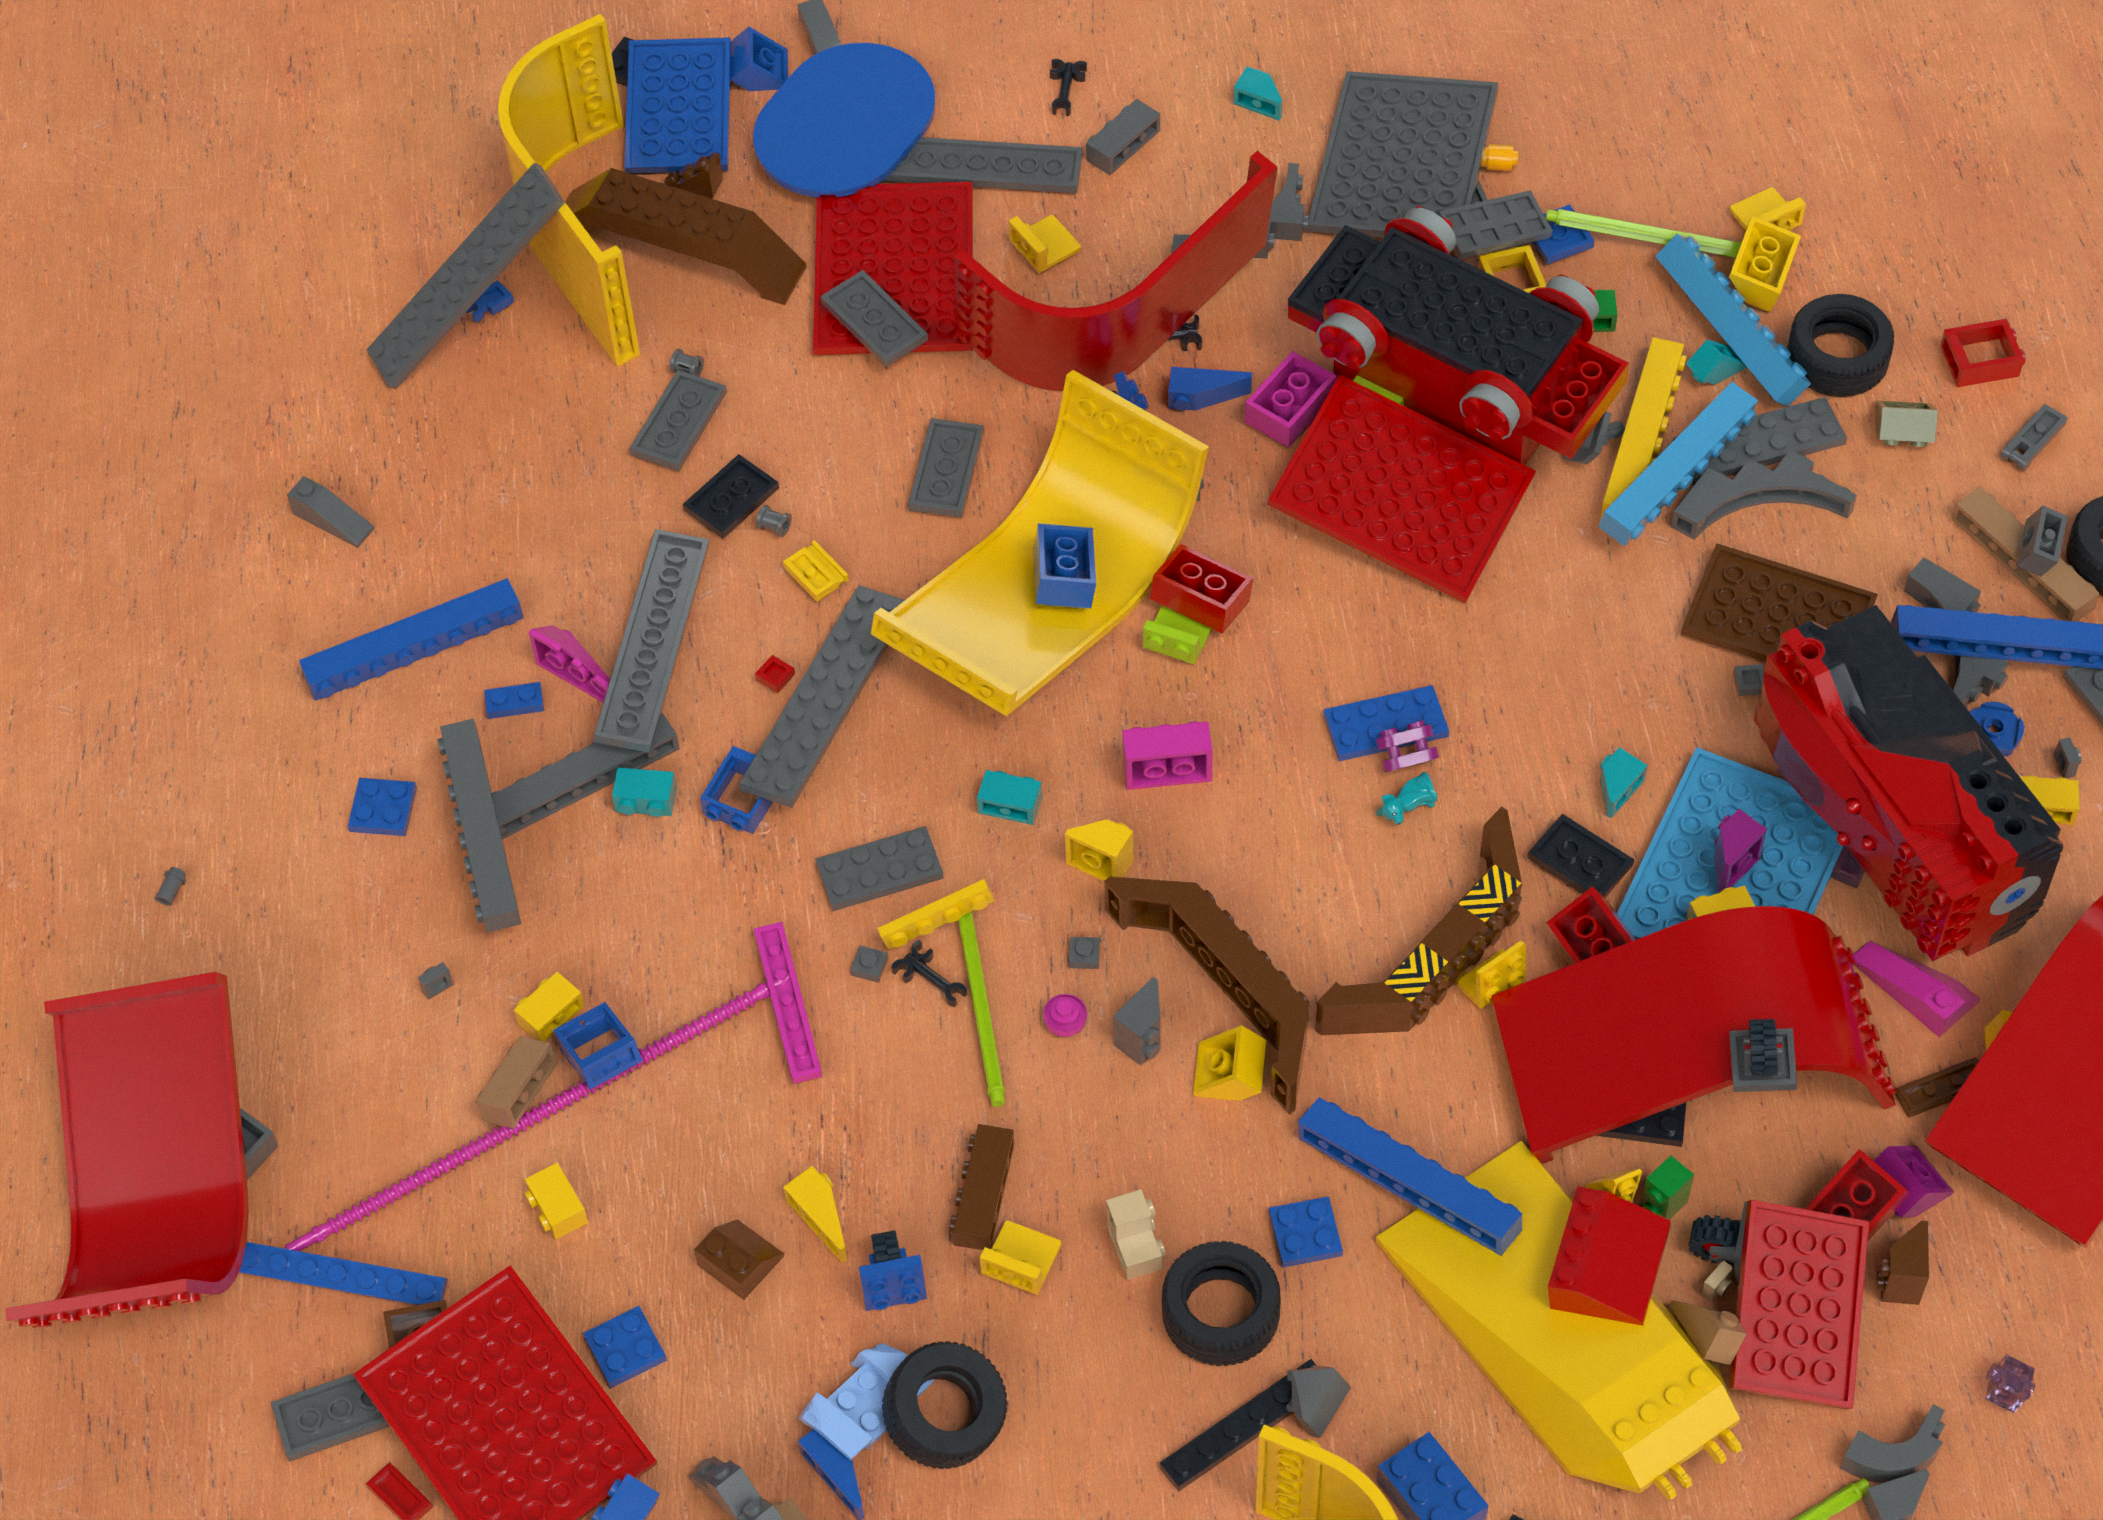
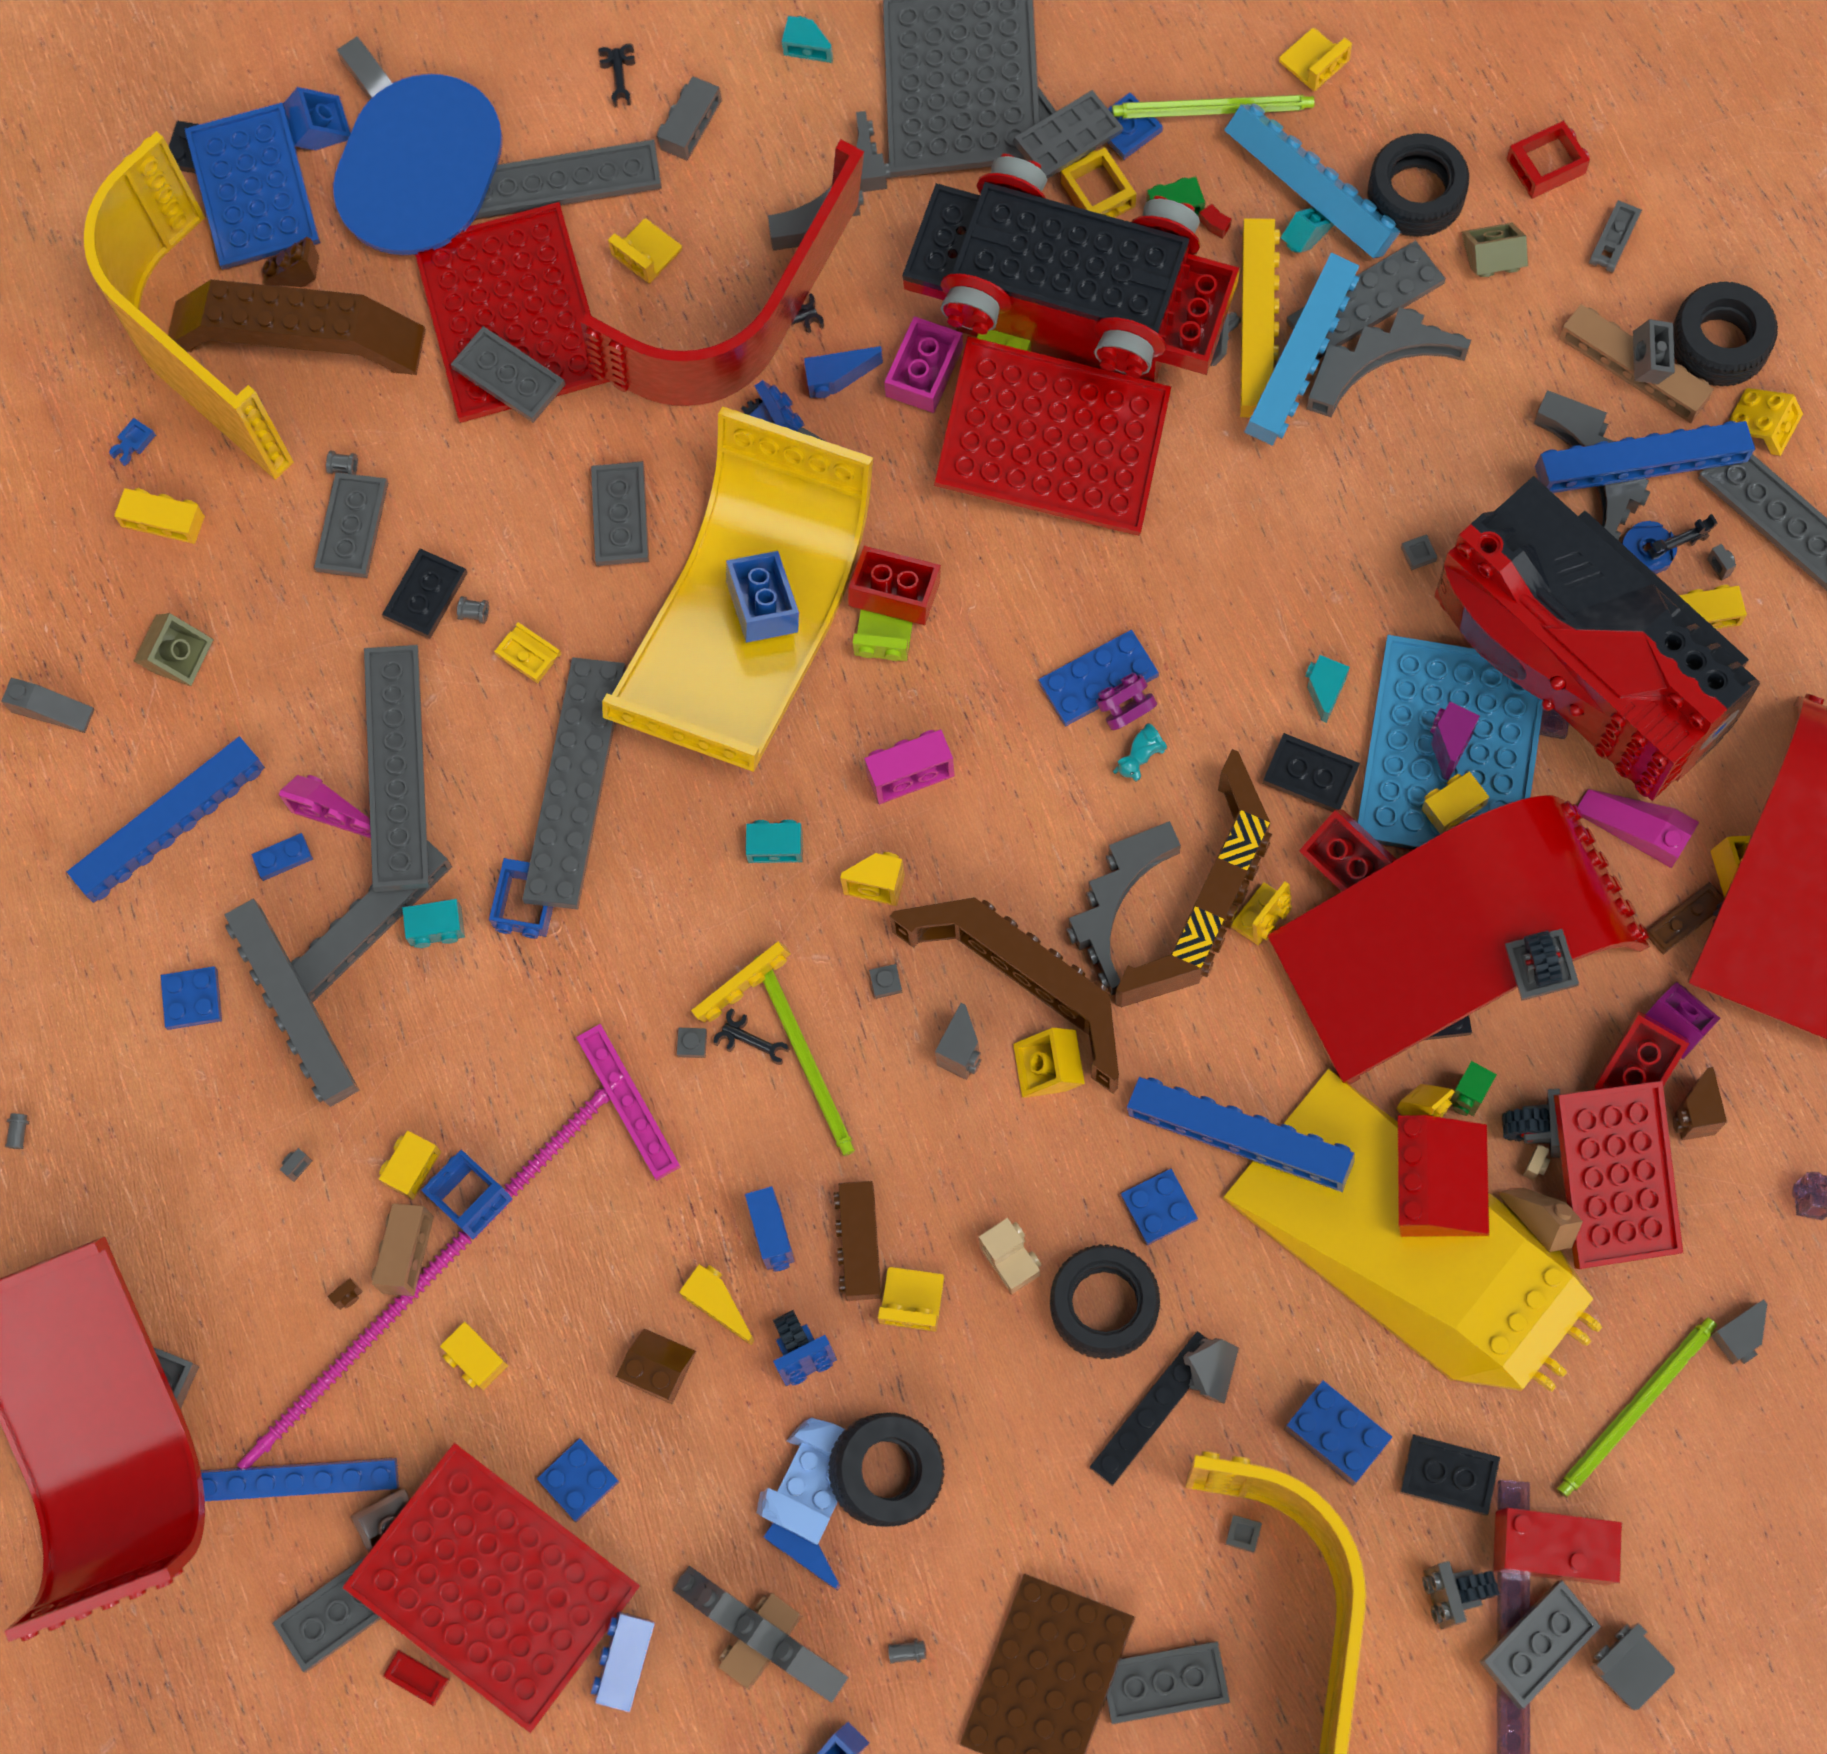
camera: 10 degrees left, 15 degrees up
(445, 1112) = (345, 1294): none -> reddish brown plate
(465, 275) = (106, 435): dark grey plate -> none
(469, 490) = (173, 649): none -> olive slope
(494, 370) = (159, 515): none -> yellow brick
(775, 673) = (520, 769): red plate -> none
(879, 868) = (673, 943): dark grey plate -> none
(894, 1150) = (770, 1229): none -> blue window
(1065, 1015) = (886, 1050): dark pink plate -> none
(1367, 898) = (1131, 860): none -> dark grey arch
(1500, 157) = (1052, 56): light orange brick -> none
(1624, 337) = (1215, 221): none -> red piece
(1753, 600) = (1425, 475): reddish brown plate -> none
(1763, 262) = (1328, 114): yellow slope -> none
(1885, 1461) = (1720, 1299): dark grey arch -> none
(2045, 725) = (1692, 535): none -> black bar

